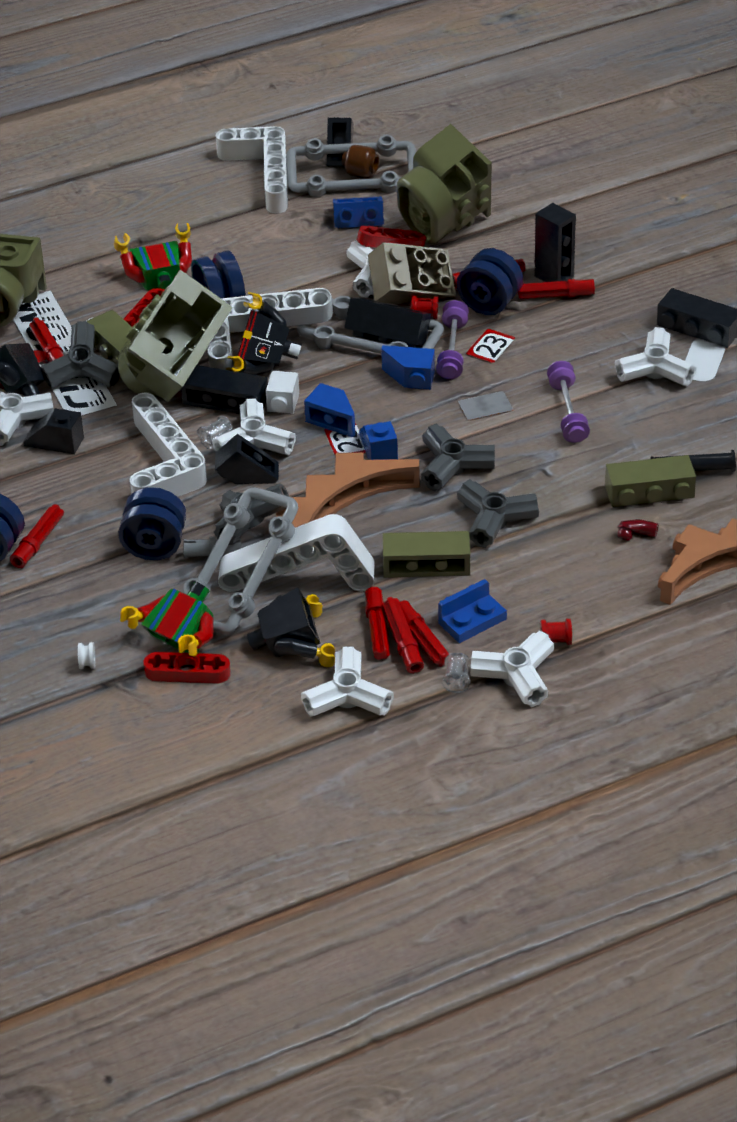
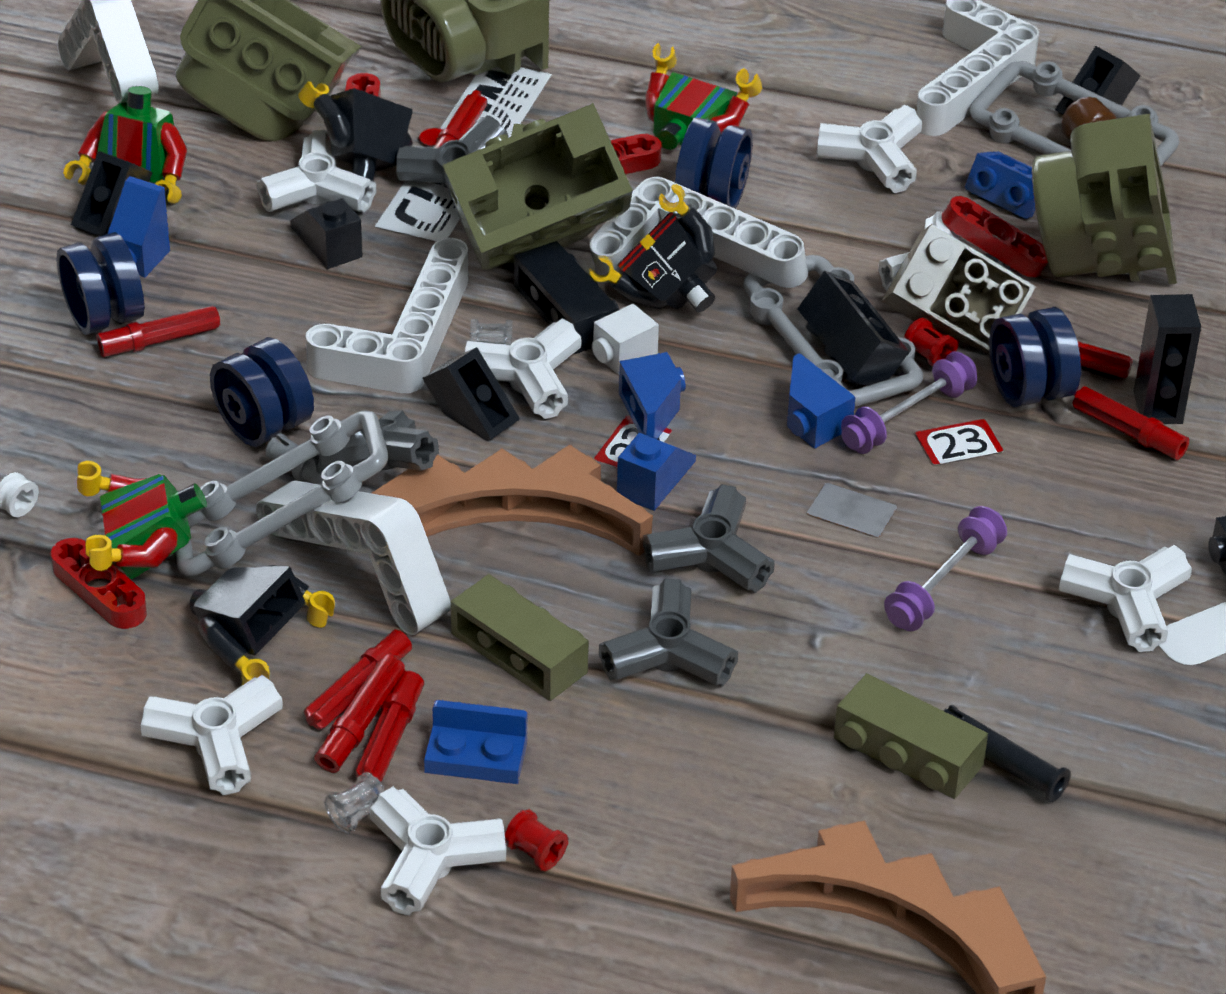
camera: 40 degrees right, 0 degrees up
(272, 231) = (875, 146): none -> white piece
(637, 526) = (820, 781): dark red arm -> none

